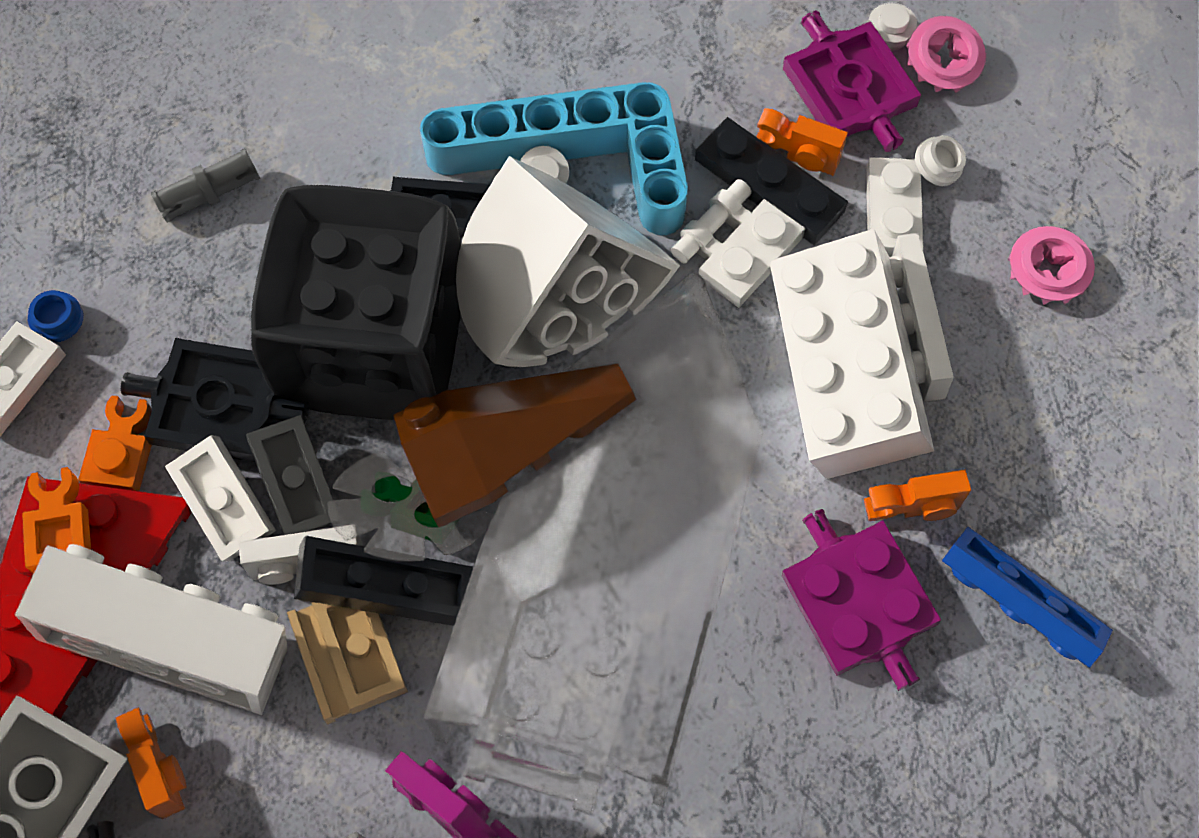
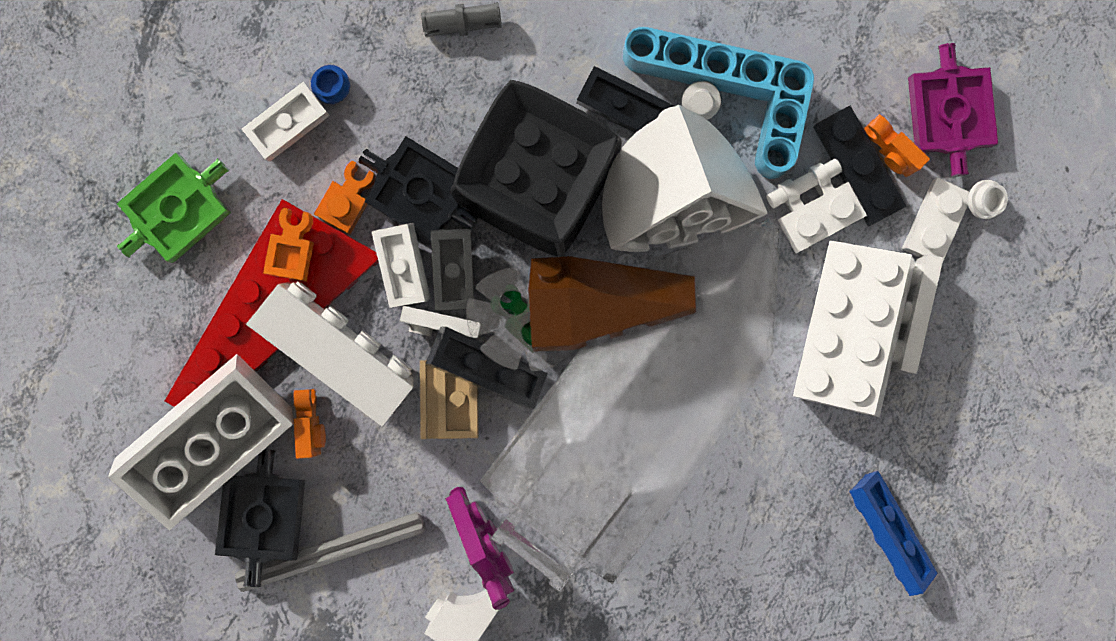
camera: 25 degrees right, 20 degrees up
(860, 598) = (786, 489): magenta plate -> none
(894, 24) = (1006, 72): white plate -> none
(929, 495) = (863, 445): orange plate -> none
(964, 47) = (1050, 114): bright pink gear -> none
(1059, 248) = (1037, 296): bright pink gear -> none

